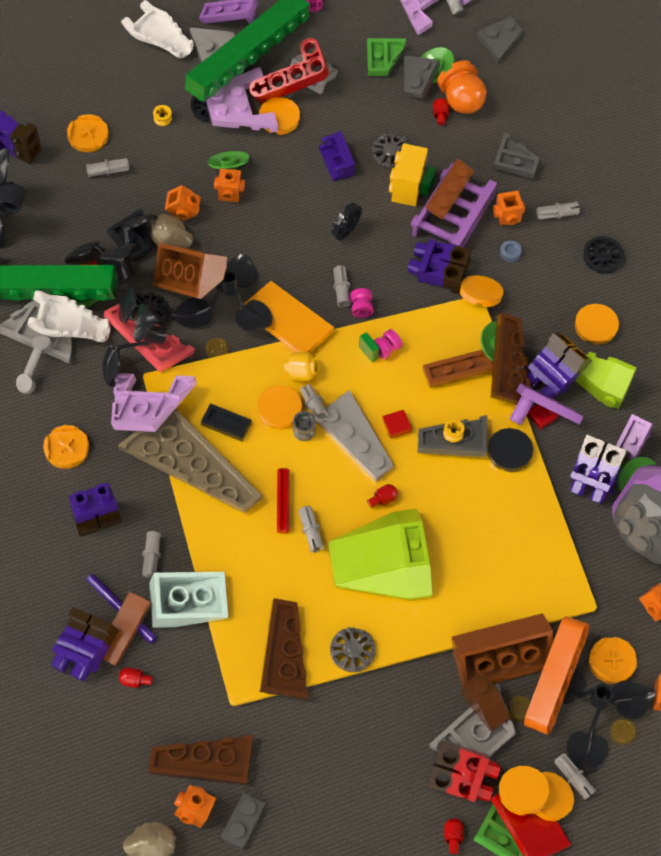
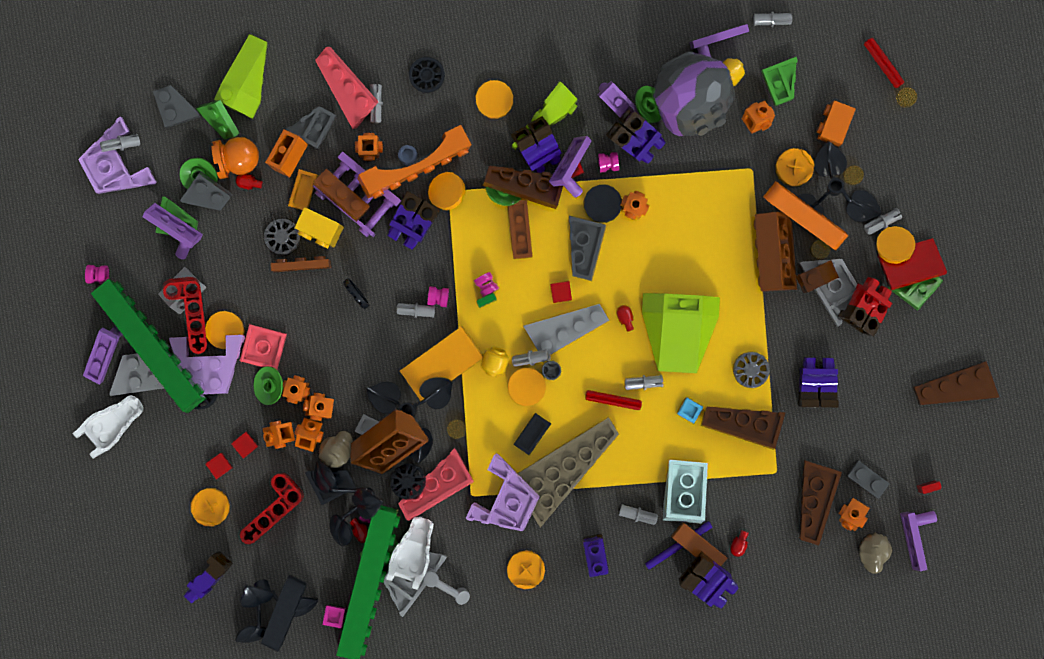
camera: 75 degrees left, 25 degrees up
(70, 172) = (270, 512): none -> red beam
(107, 167) = (253, 494): light grey axle -> none
(133, 133) = (219, 465): none -> red tile
(143, 329) = (442, 490): black plant -> none
(160, 152) = (244, 445): none -> red tile
(162, 109) = (207, 441): yellow bush -> none
(184, 174) = (278, 434): none -> orange brick
(214, 207) = (325, 407): none -> orange brick
(268, 153) = (263, 347): none -> coral tile
(288, 588) = (690, 410): none -> medium azure tile
(337, 156) = (281, 287): dark purple hinge -> none
(350, 734) = (818, 385): none -> dark purple hips
(365, 169) = (282, 265): none -> dark orange plate
(375, 49) = (175, 227): none -> medium lavender piece
(428, 180) = (323, 211): green tile -> none
(443, 159) = (302, 190): none -> light orange tile
(453, 424) = (580, 242): yellow bush -> none
(453, 834) = (908, 323): red cylinder -> none
(480, 135) = (286, 153): none -> orange brick
(499, 72) = (218, 118): none -> bright green wing
(517, 479) = (629, 210): none -> orange brick
(523, 790) = (893, 264): light orange tile -> none
(532, 286) = (376, 181): none -> orange arch
(543, 88) = (244, 79): none -> lime wedge
(559, 447) = (606, 162): none -> dark pink wheel
(567, 180) = (348, 90): none -> coral wing

